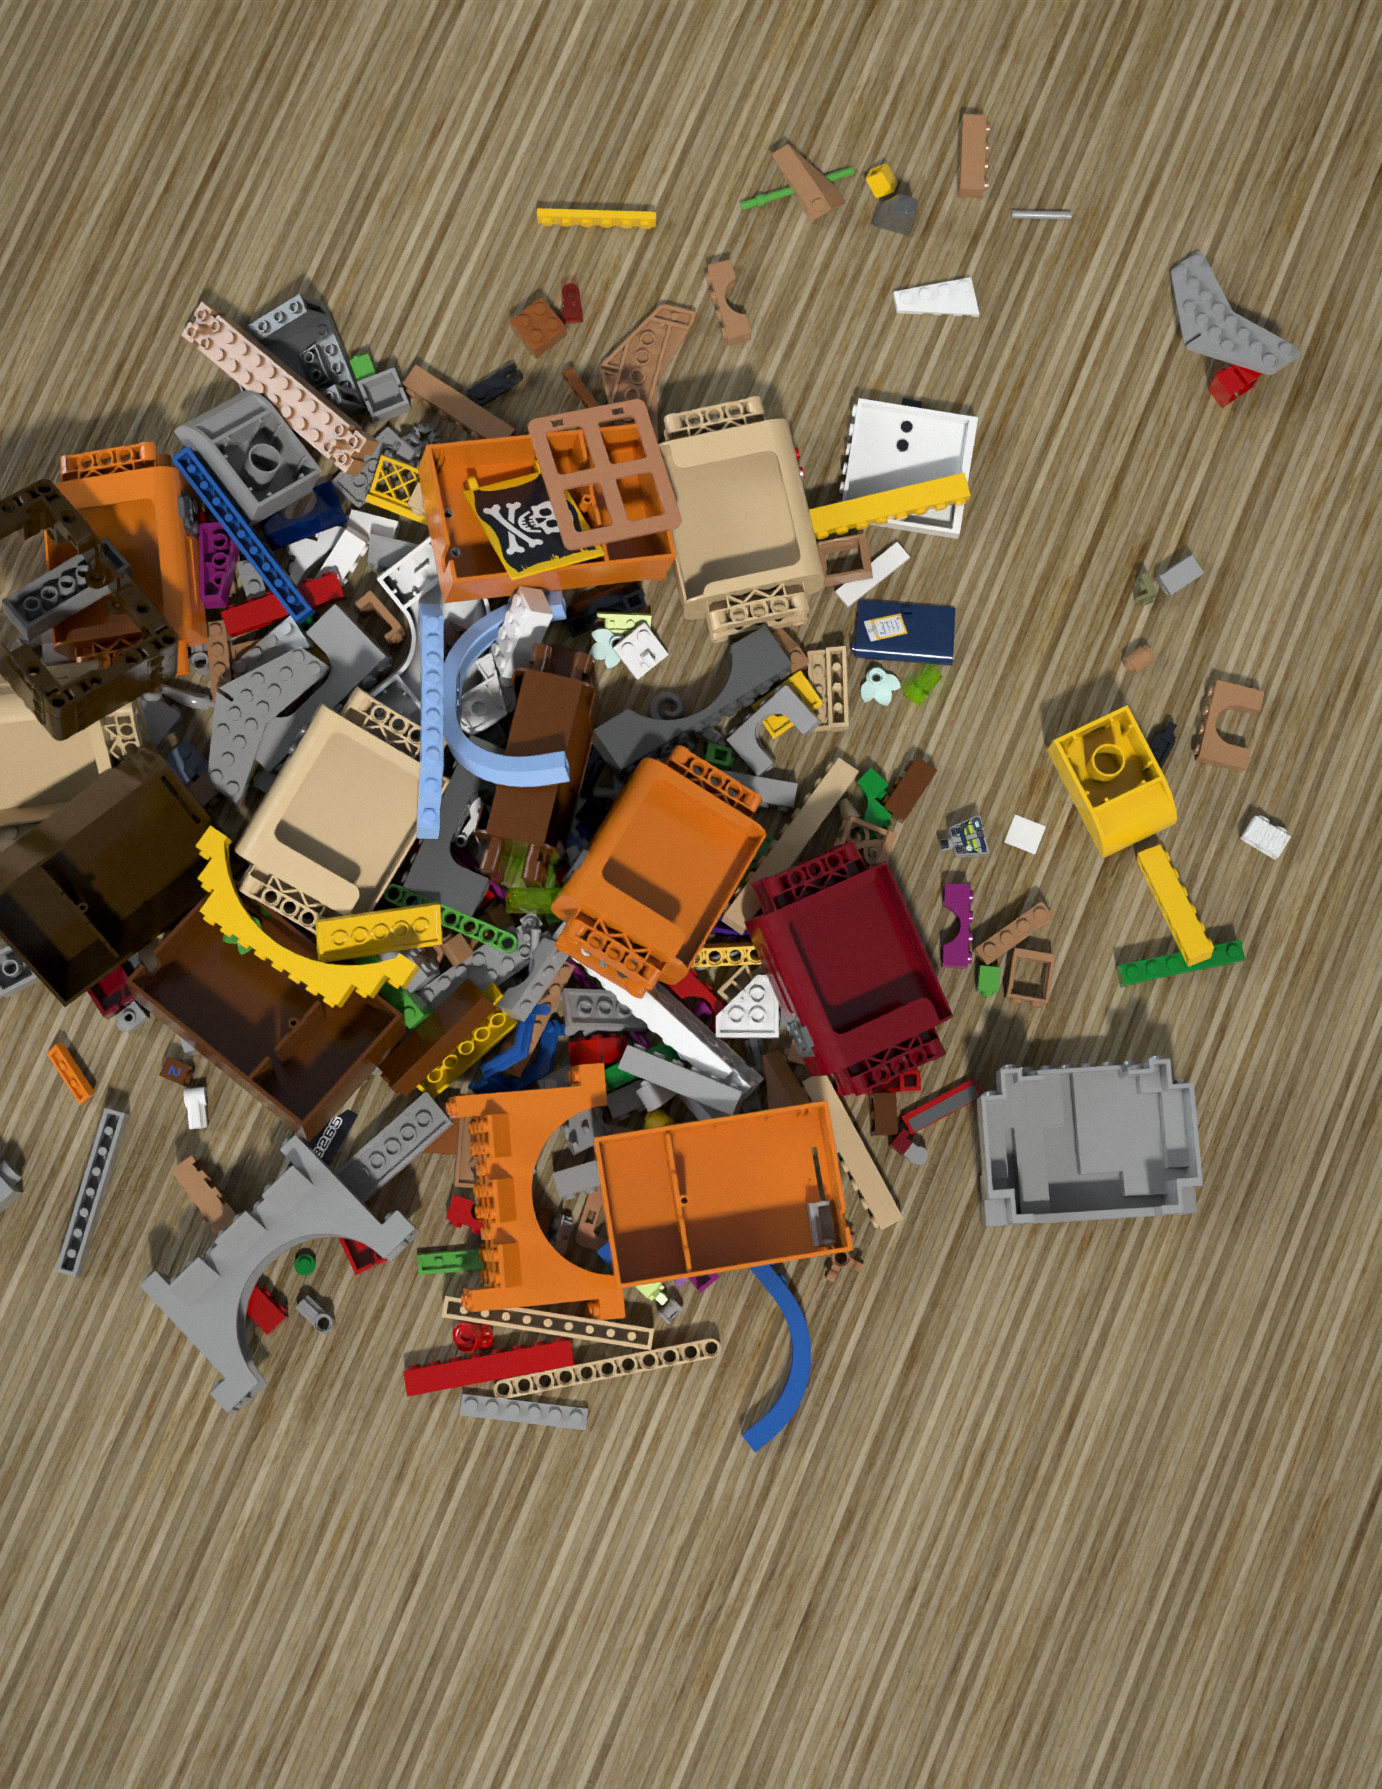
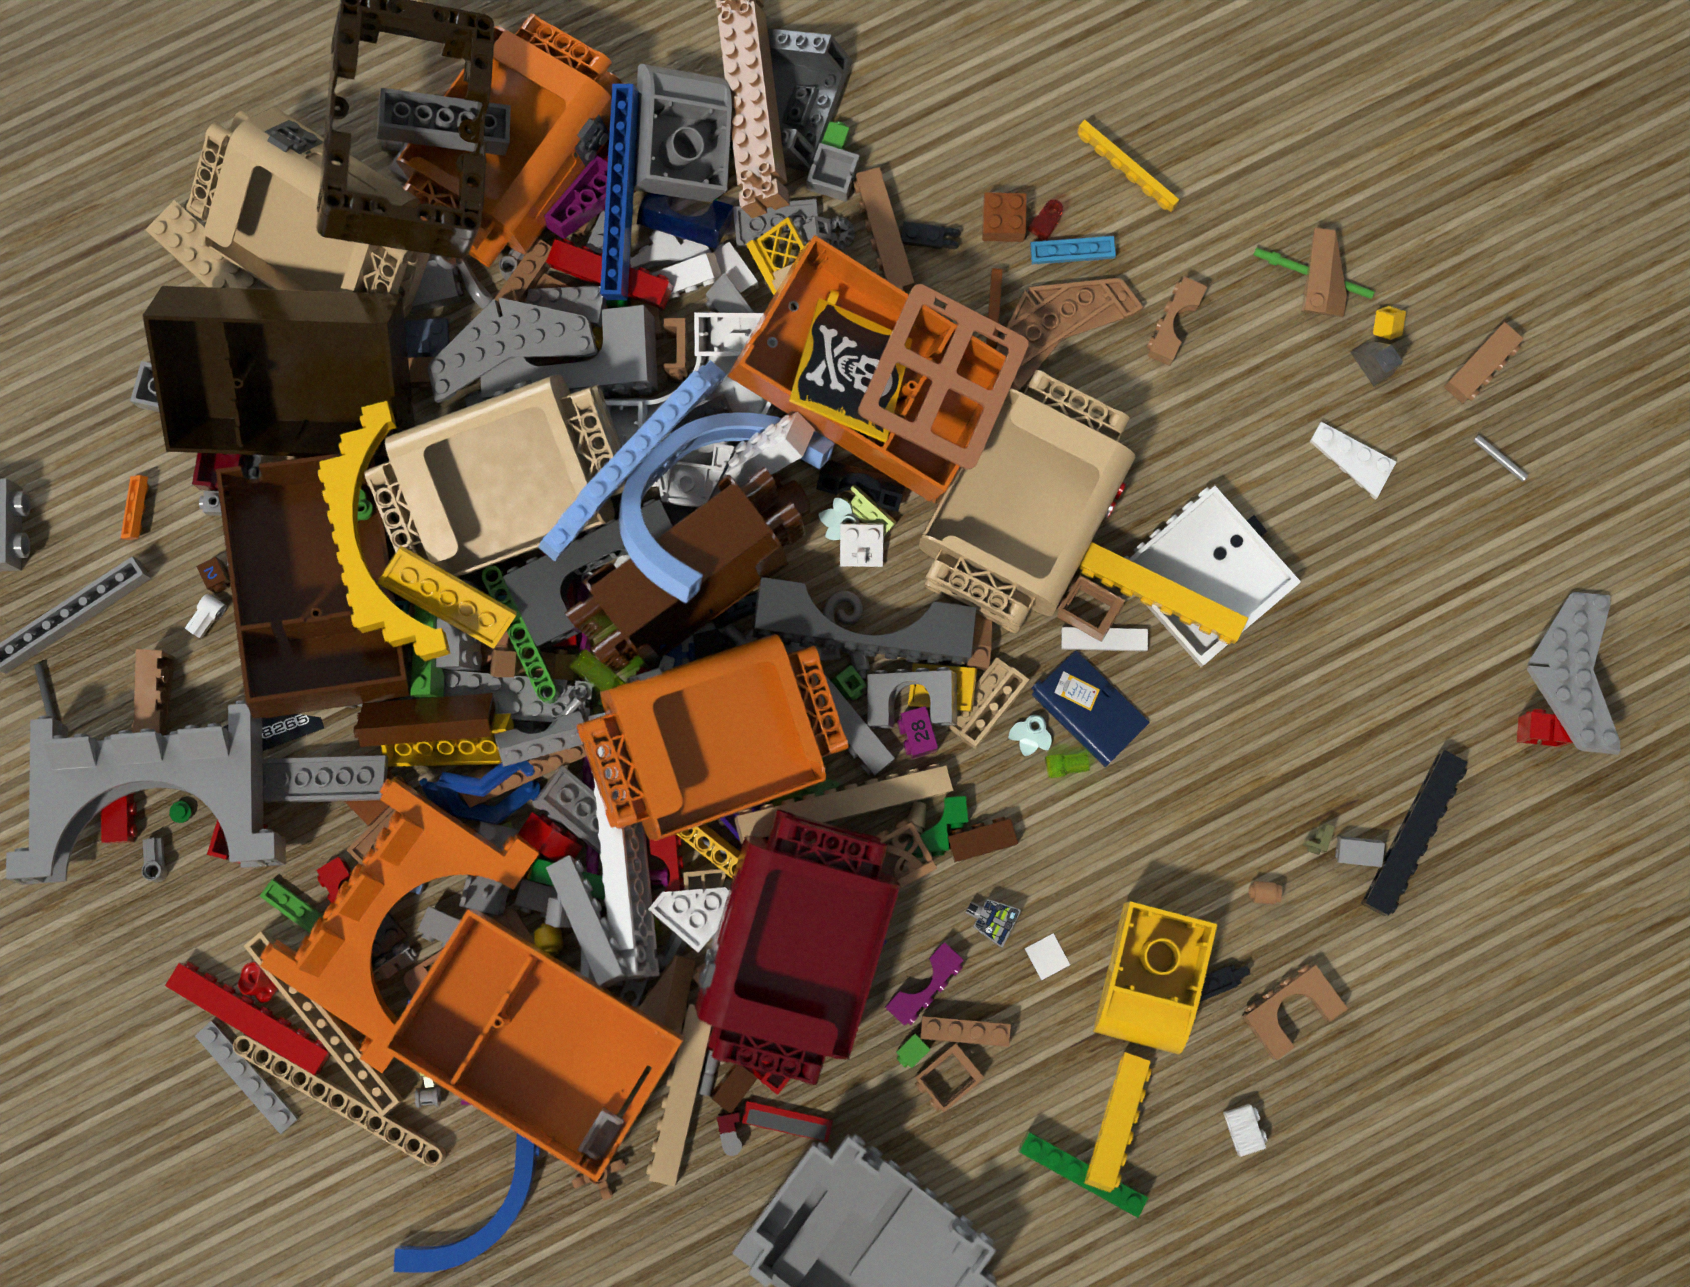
camera: 45 degrees right, 0 degrees up
(121, 1264) = (44, 689): none -> dark grey bar
(609, 312) = (1072, 250): none -> dark azure plate
(798, 751) = (918, 733): none -> magenta brick
(856, 1119) = (707, 1076): none -> light grey piece
(1206, 531) = (1414, 833): none -> black brick

